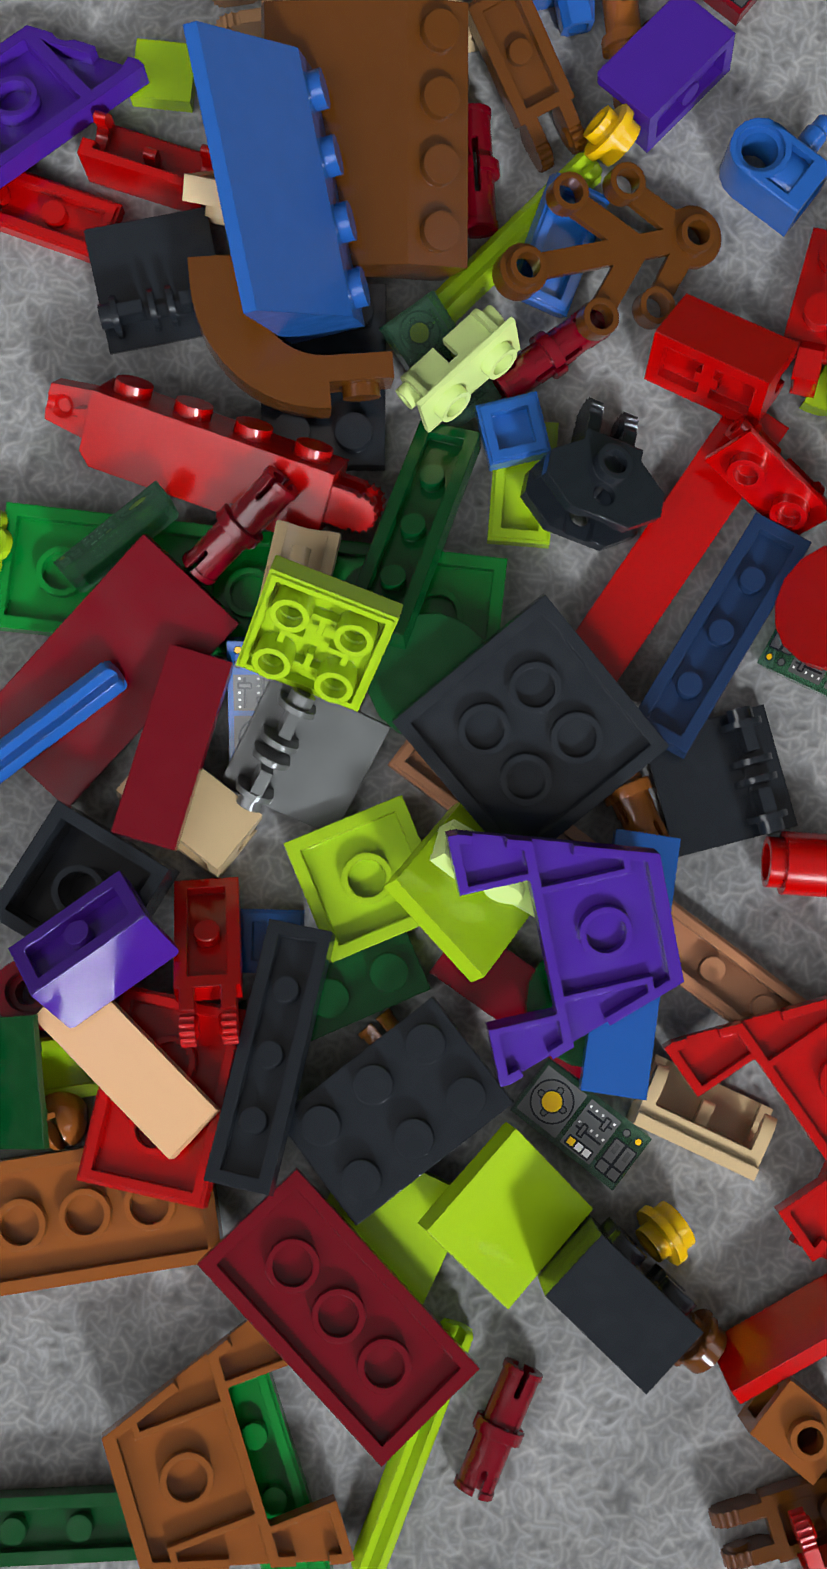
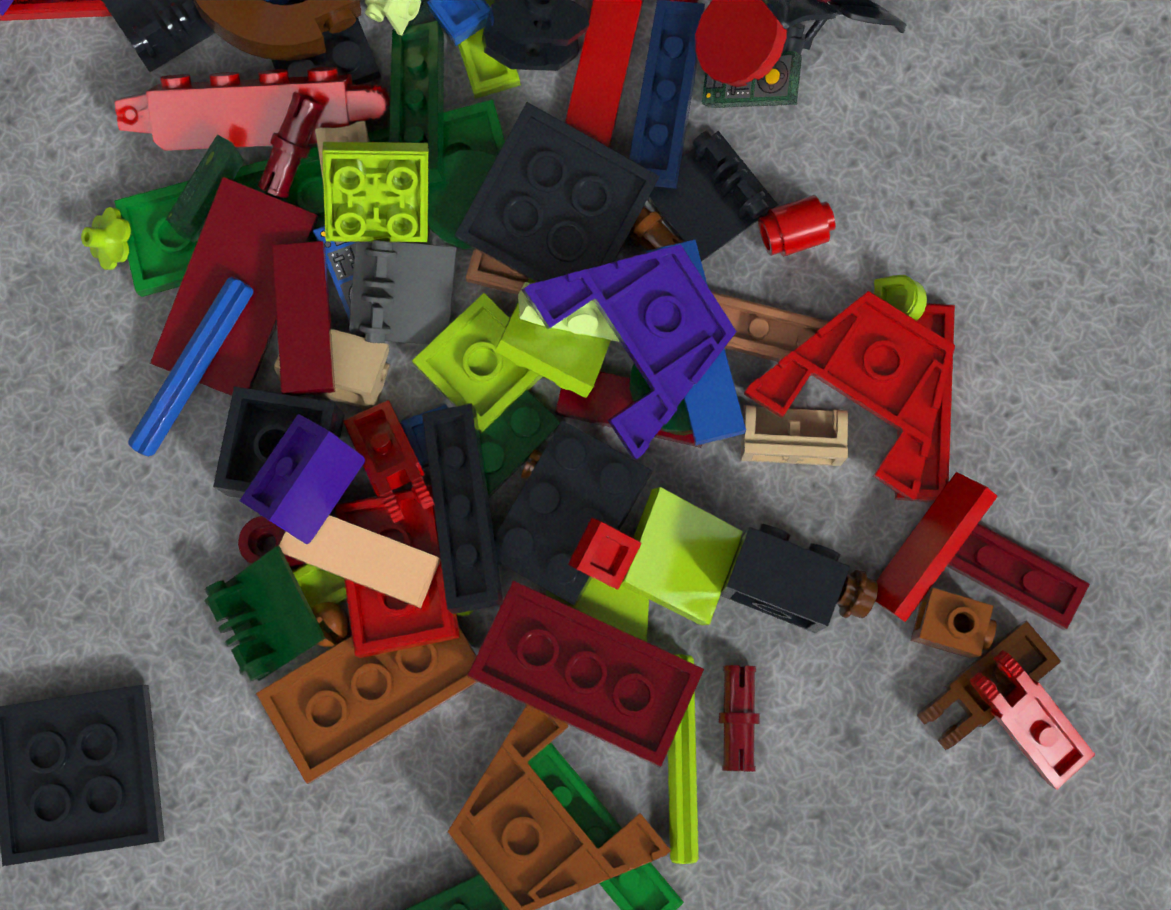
camera: 15 degrees left, 5 degrees down
(416, 1189) = (604, 553): none -> red plate
(580, 1124) = (709, 476): tile -> none
(664, 1233) = (802, 524): yellow plate -> none

